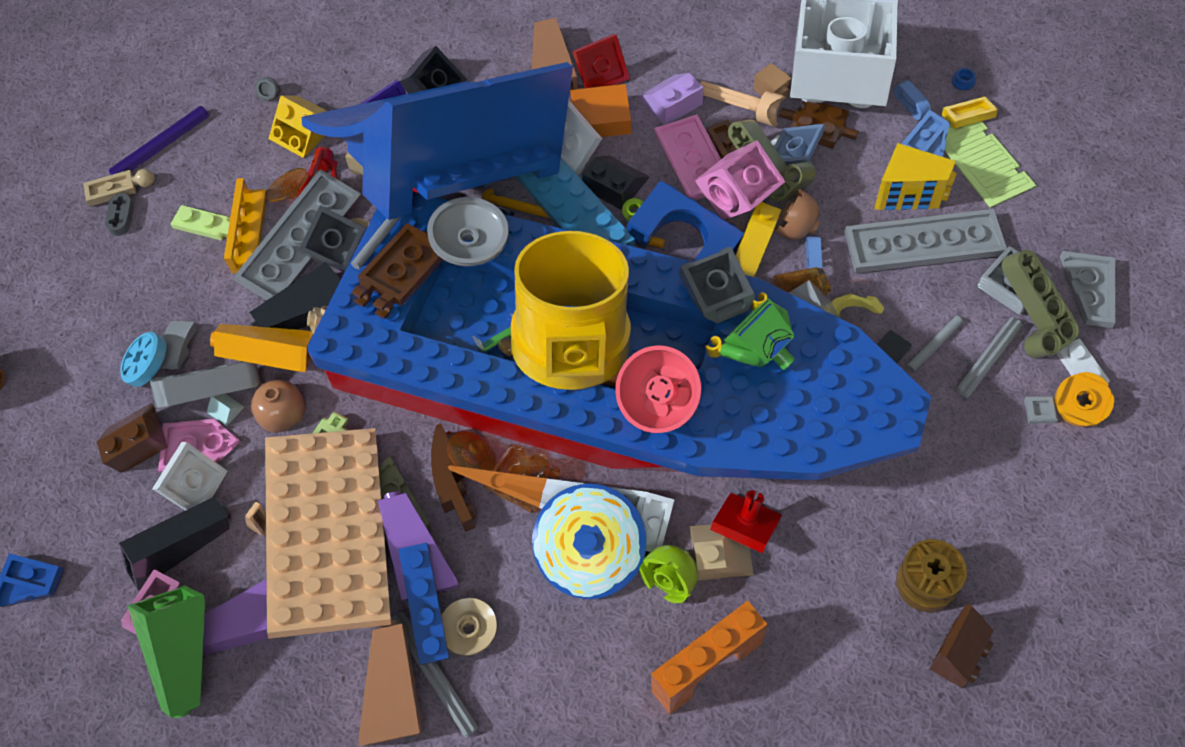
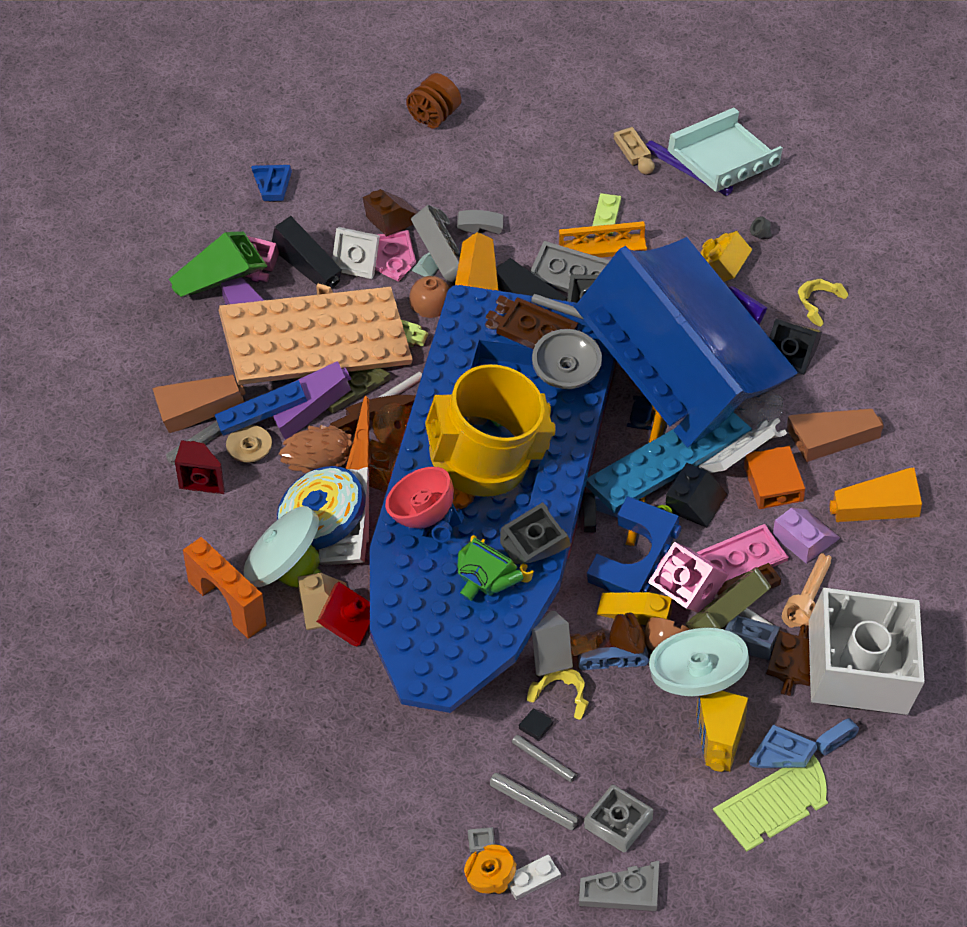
camera: 80 degrees right, 10 degrees down
(115, 214) = (606, 159): dark grey beam -> none
(143, 359) = (460, 202): medium azure wheel -> none
(154, 106) = (722, 151): none -> light aqua panel
(359, 47) = (818, 284): none -> light yellow helmet
(412, 456) = (404, 385): none -> white bar
(501, 540) = (316, 448): none -> nougat head
(506, 686) = (198, 468): none -> dark red slope
(601, 63) = (827, 467): red tile -> none
(637, 34) = (879, 498): none -> light orange slope
(657, 583) = (281, 546): none -> light aqua dish
(799, 246) = (627, 633): none -> reddish brown hat
(858, 175) = (699, 661): none -> light aqua dish
(921, 587) = (305, 741): pearl gold wheel -> none
(925, 240) = (659, 749): light grey plate -> none
(963, 648) = (244, 762): reddish brown slope -> none
(968, 76) = (877, 779): blue plate -> none
(969, 112) = (830, 789): yellow tile -> none
(1042, 302) = (582, 819): olive beam -> none

